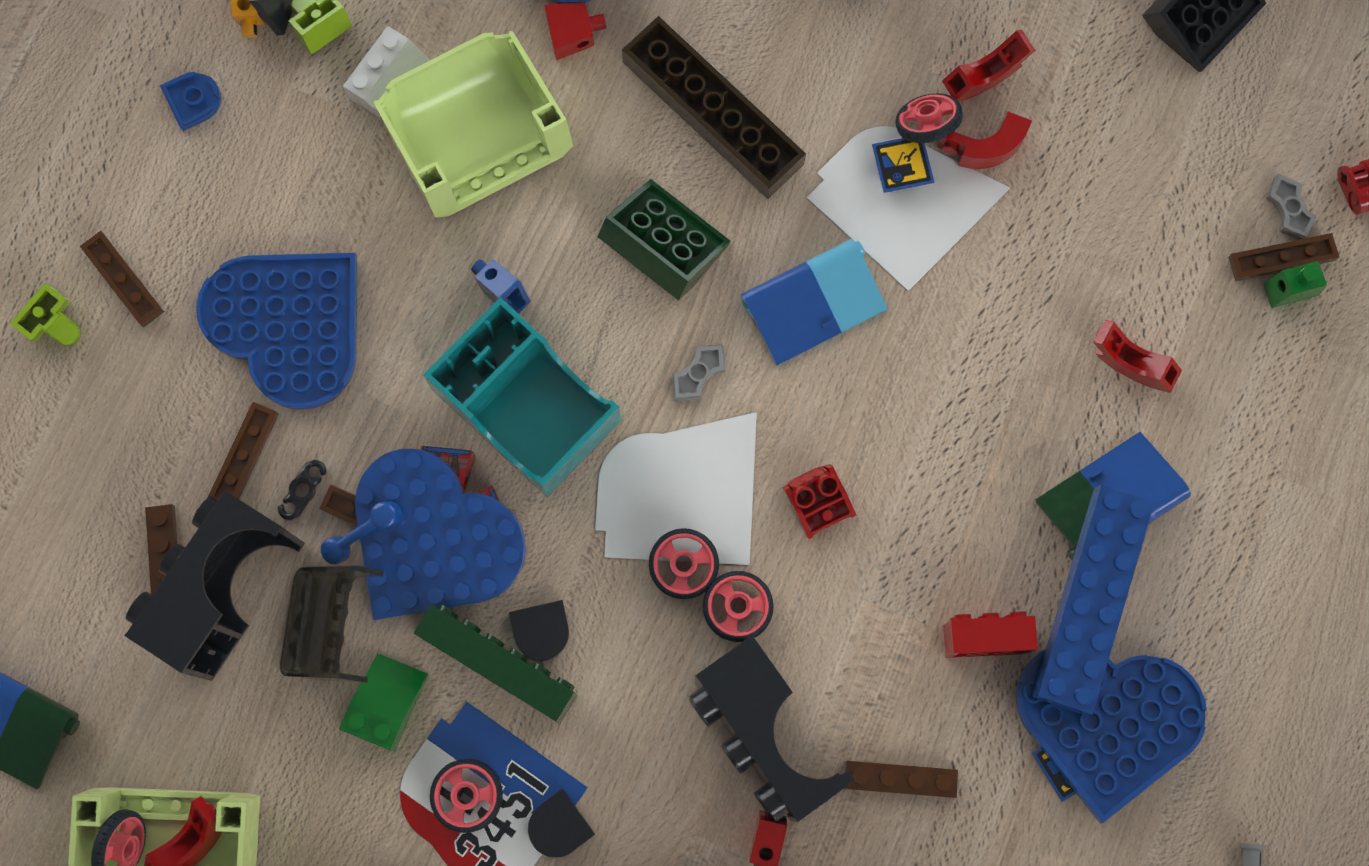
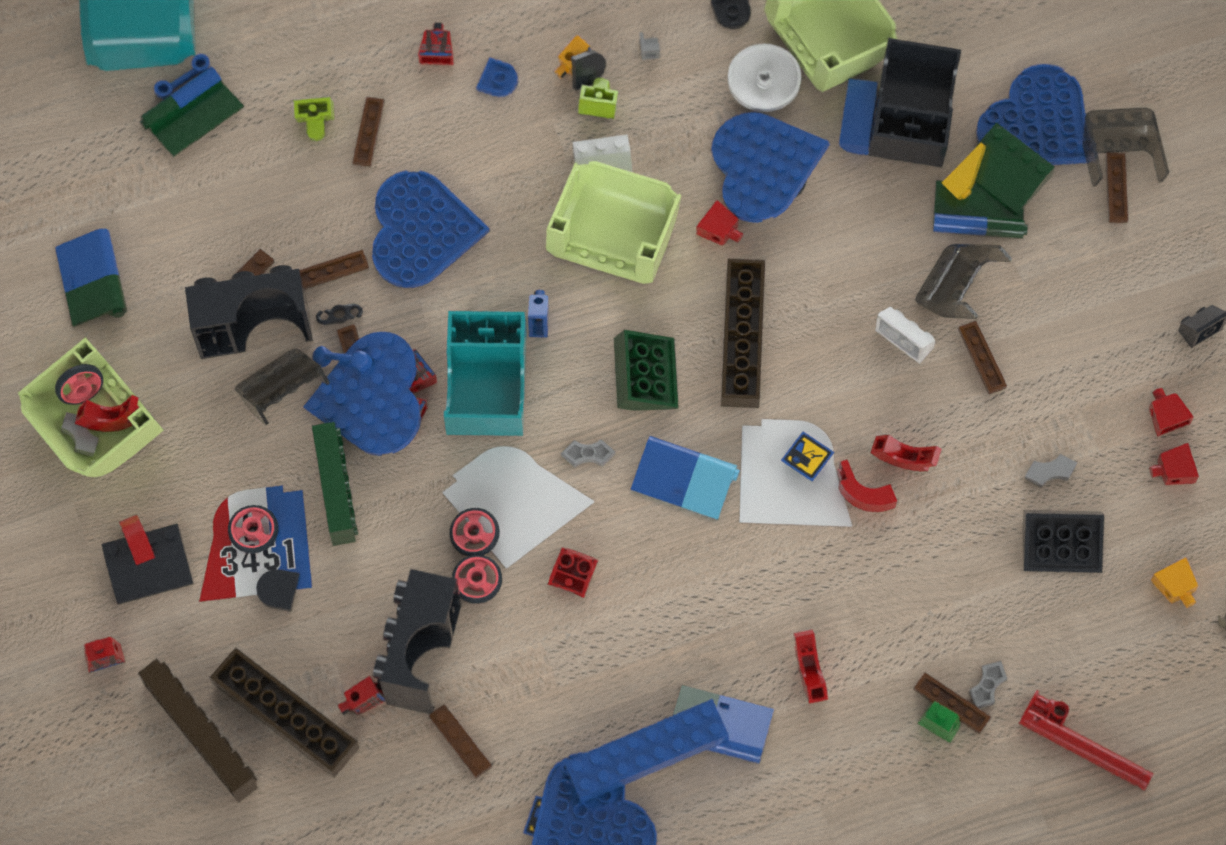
camera: 50 degrees right, 10 degrees down
(95, 126) = (436, 46): none -> torso
(384, 703) = (264, 449): green slope -> none
(541, 630) = (373, 493): black tile -> none
(928, 114) = (846, 447): wheel -> none
(990, 635) = (578, 717): red brick -> none

